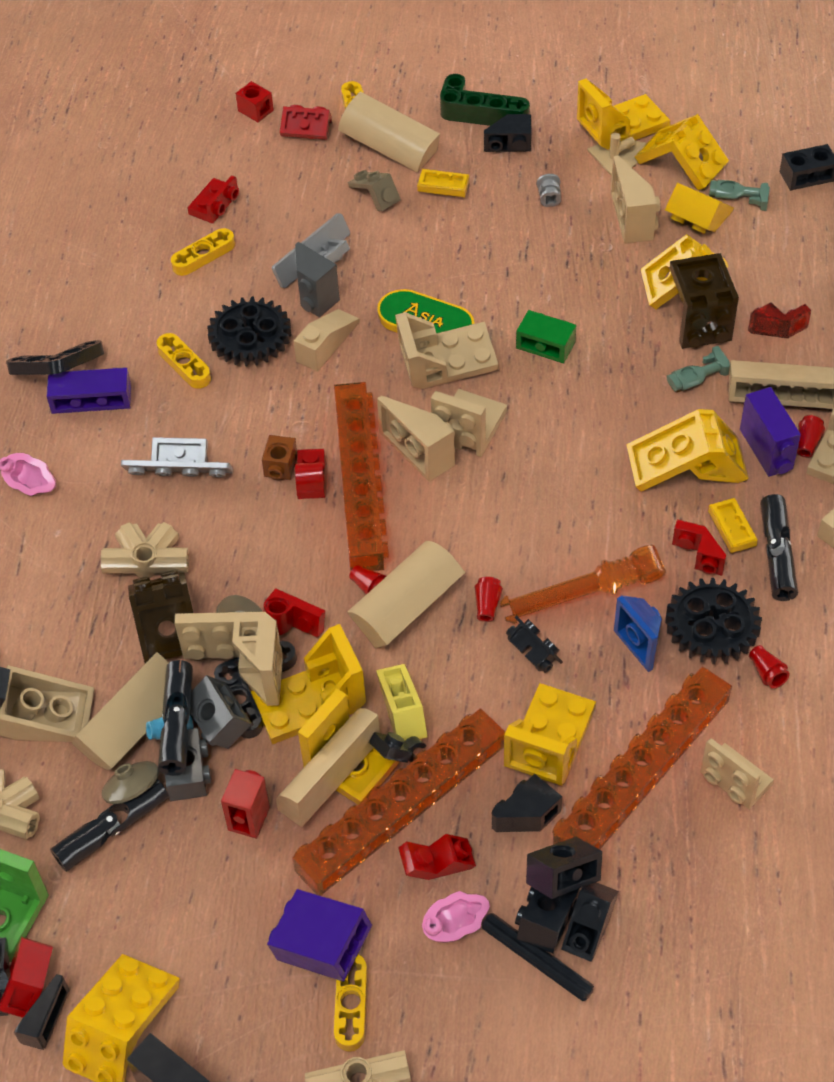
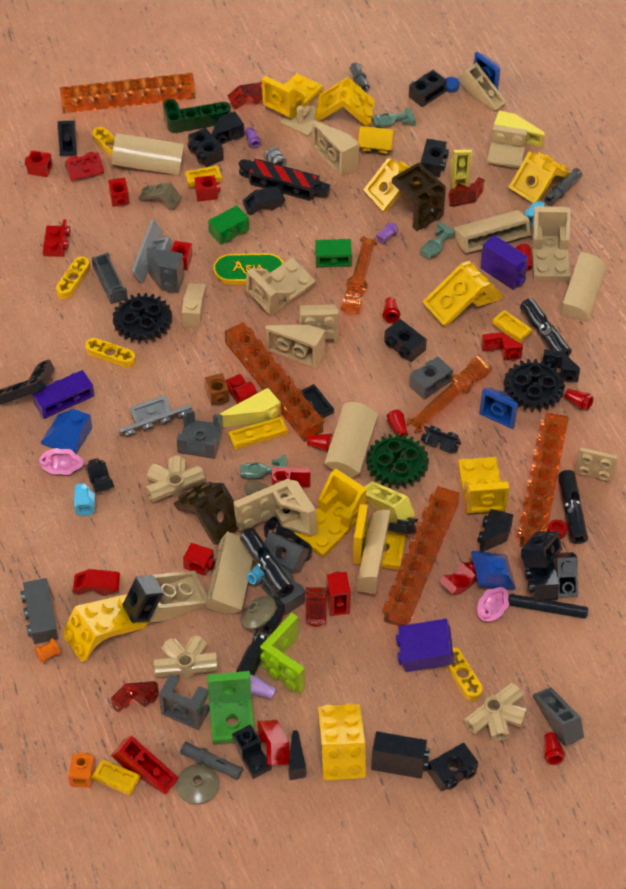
camera: 30 degrees left, 0 degrees up
(19, 534) = (84, 500): none -> medium azure rock
(62, 510) = (98, 475): none -> black slope
(63, 887) = (261, 688): none -> lavender cone
(65, 442) = (68, 430): none -> blue slope
(105, 673) = (198, 559): none -> red brick
(115, 842) = (276, 662): none -> lime bracket
(206, 812) = (315, 606): none -> clear red slope
(219, 511) = (200, 437): none -> dark grey panel
(244, 267) = (109, 278): none -> dark grey container
(262, 585) = (259, 470): none -> sand green piece
(297, 536) = (258, 433): none -> yellow tile
(308, 81) = (67, 137): none -> black slope
(308, 503) = (253, 410): none -> light yellow slope
(325, 166) = (118, 192): none -> red brick
(351, 269) = (186, 250): none -> red brick
(399, 525) = (319, 402): none -> black tile
(416, 51) = (127, 92): none -> clear orange brick
(434, 253) = (228, 225): none -> green brick
(436, 198) = (206, 188): none -> red brick
(453, 650) = (413, 460): none -> dark green gear
(468, 148) = (205, 147): none -> black brick
(487, 866) = (493, 570): none -> blue slope
(505, 235) = (267, 197): none -> black slope
(536, 159) = (253, 140): none -> medium lavender pin
(542, 220) = (290, 180): none -> black hinge
(549, 389) = (357, 284): none -> clear orange piece
(556, 97) = (244, 93): none -> clear red slope
(568, 488) = (405, 340): none -> black brick
(571, 552) = (430, 377): none -> dark grey brick
(575, 441) = (391, 311): none -> red cone
(621, 846) = (558, 525): none -> red tile
(637, 335) = (389, 230): none -> medium lavender pin
(661, 825) = (573, 507): none -> black piece
(726, 125) = (359, 77): none -> dark grey pin
(761, 259) = (434, 156): none -> black brick
(775, 616) = (569, 369): none -> black slope
(784, 282) = (460, 167): none -> light yellow slope

